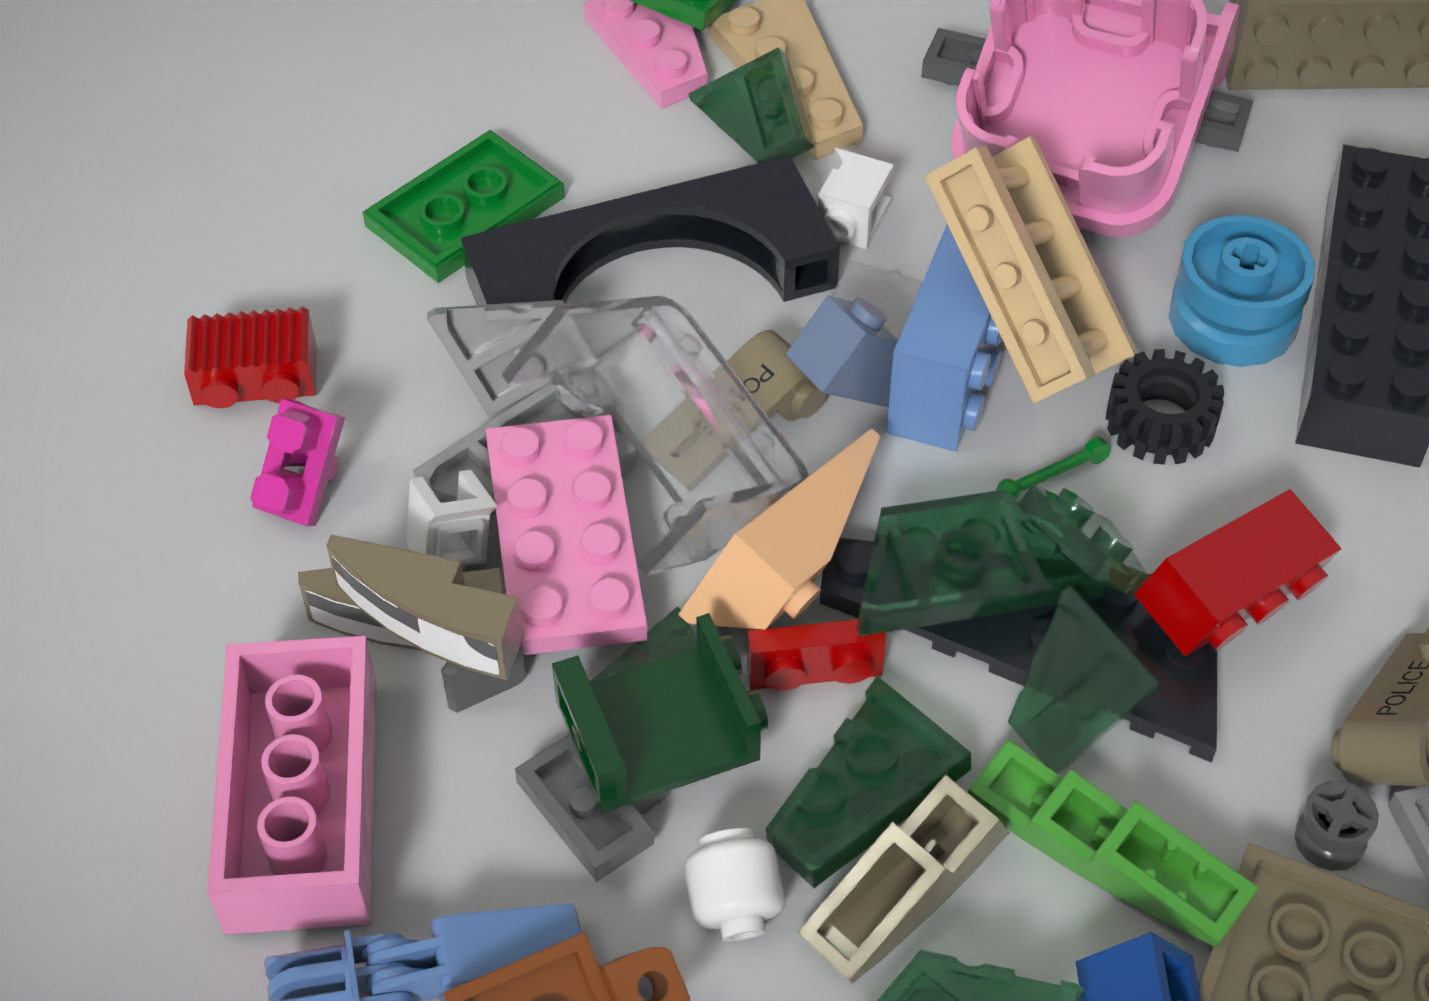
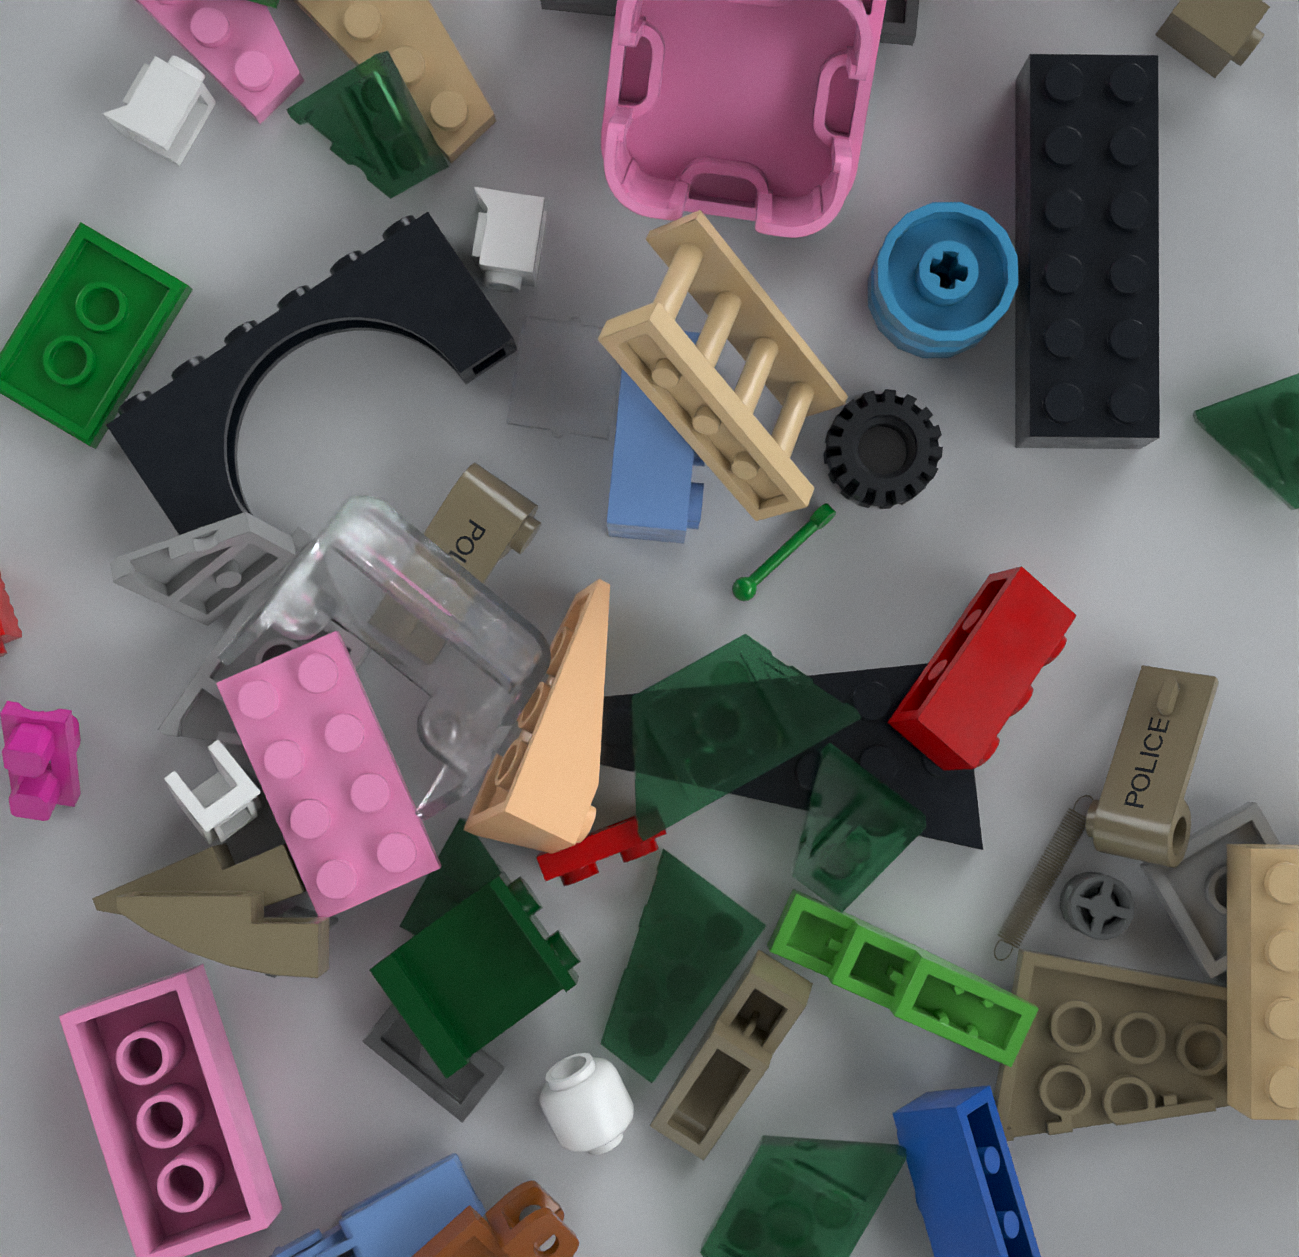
camera: 15 degrees left, 35 degrees up
(586, 74) = (164, 108): none -> white window
(847, 351) = (551, 504): sand blue slope -> none
(1085, 537) = (836, 676): clear green wing -> none
(1246, 836) = (1041, 893): none -> dark tan piece

